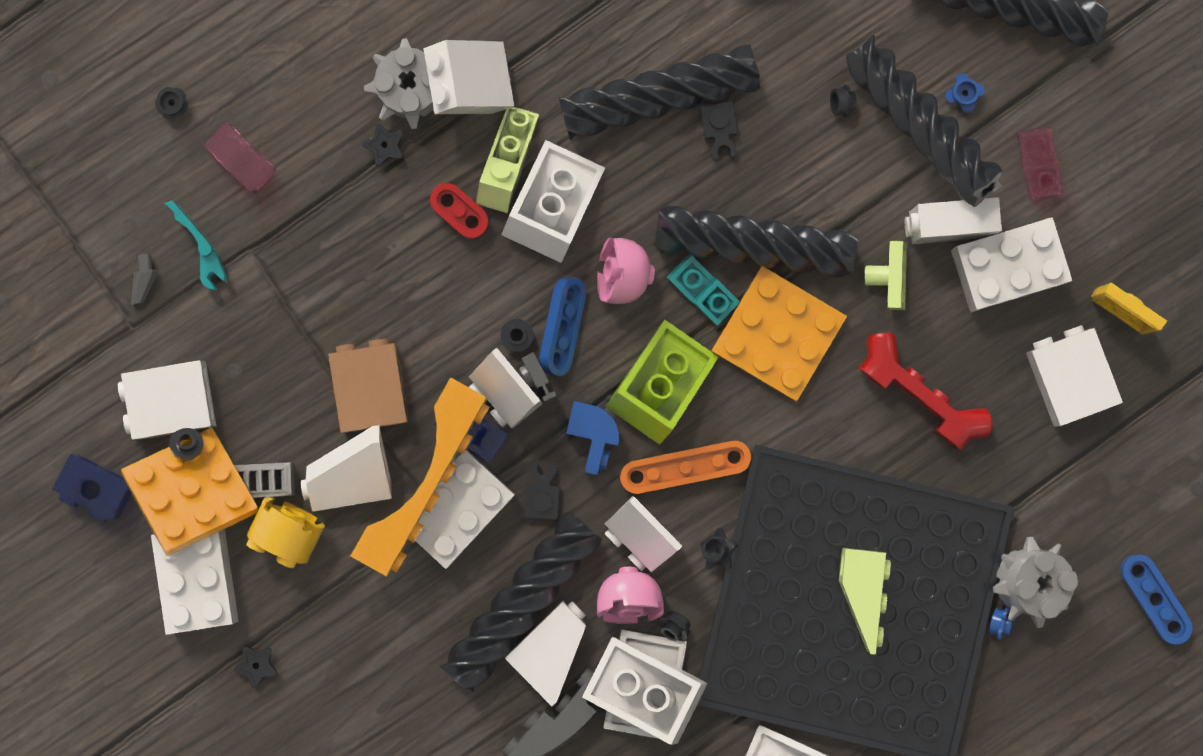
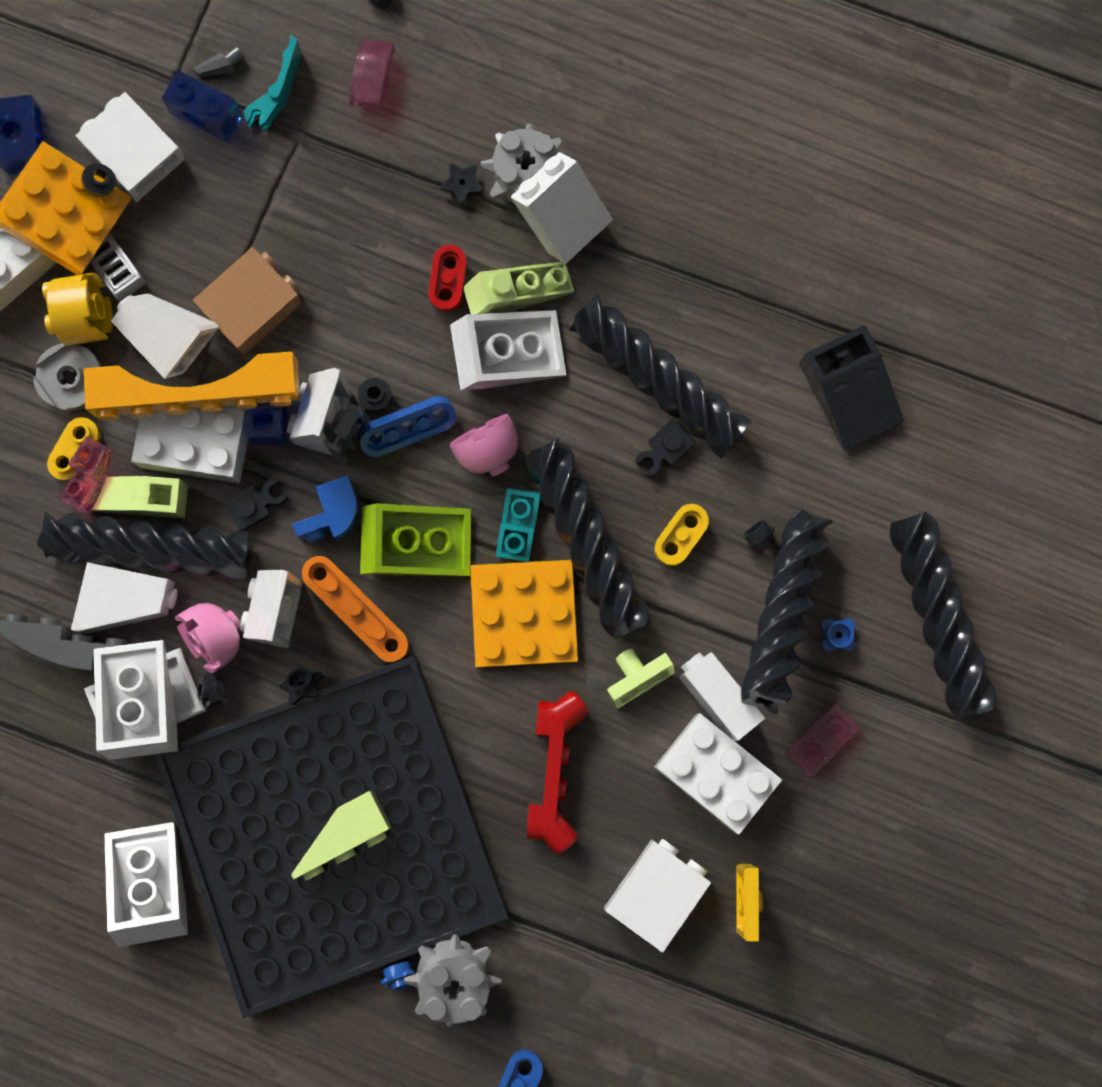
camera: 55 degrees right, 5 degrees down
(174, 317) = (202, 106): none -> clear blue brick
(320, 591) = (50, 374): none -> light grey plate
(398, 611) = (69, 444): none -> yellow plate
(428, 608) = (91, 467): none -> clear pink slope
(472, 586) = (143, 496): none -> yellowish green slope
(803, 163) = (680, 535): none -> yellow plate

